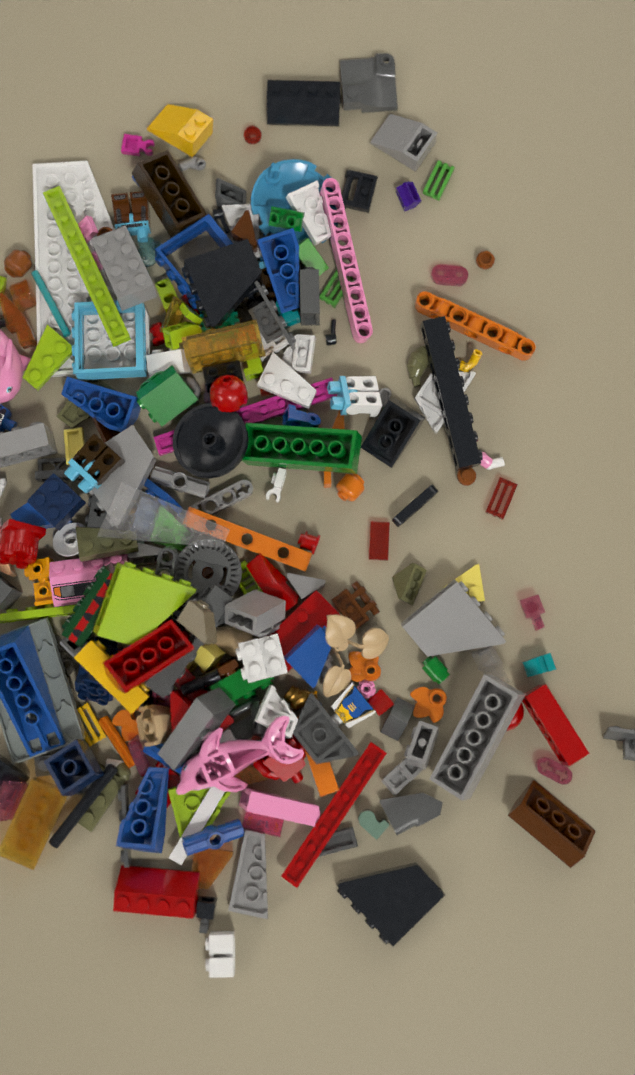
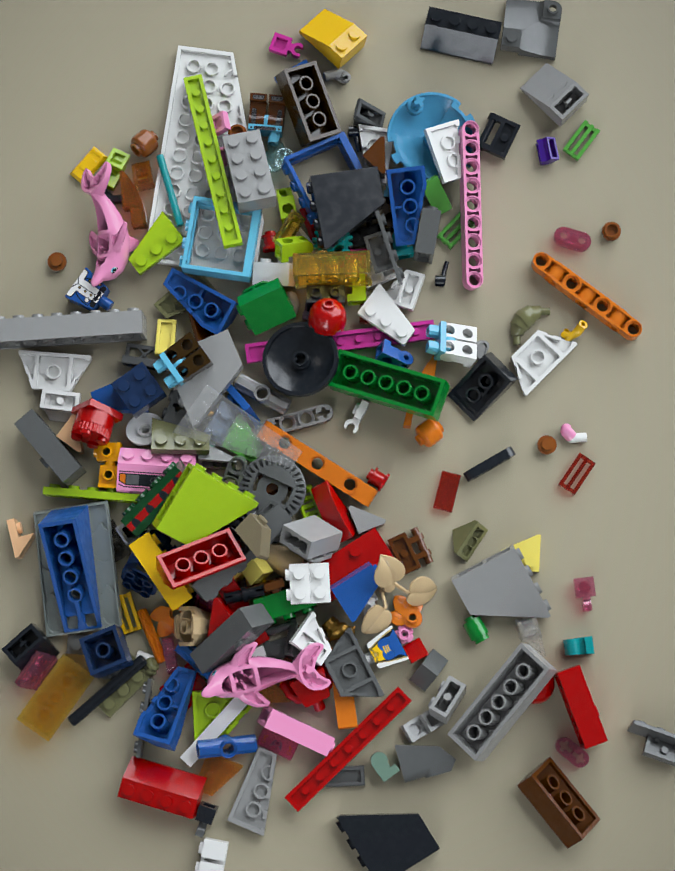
camera: 15 degrees right, 0 degrees up
(190, 313) = (306, 229): lime tile -> none
(252, 130) = (403, 52): clear red plate -> none
(286, 218) = (419, 153): green hips -> none
(426, 705) = (459, 662): orange plate -> none
(450, 393) = (547, 359): black brick -> none

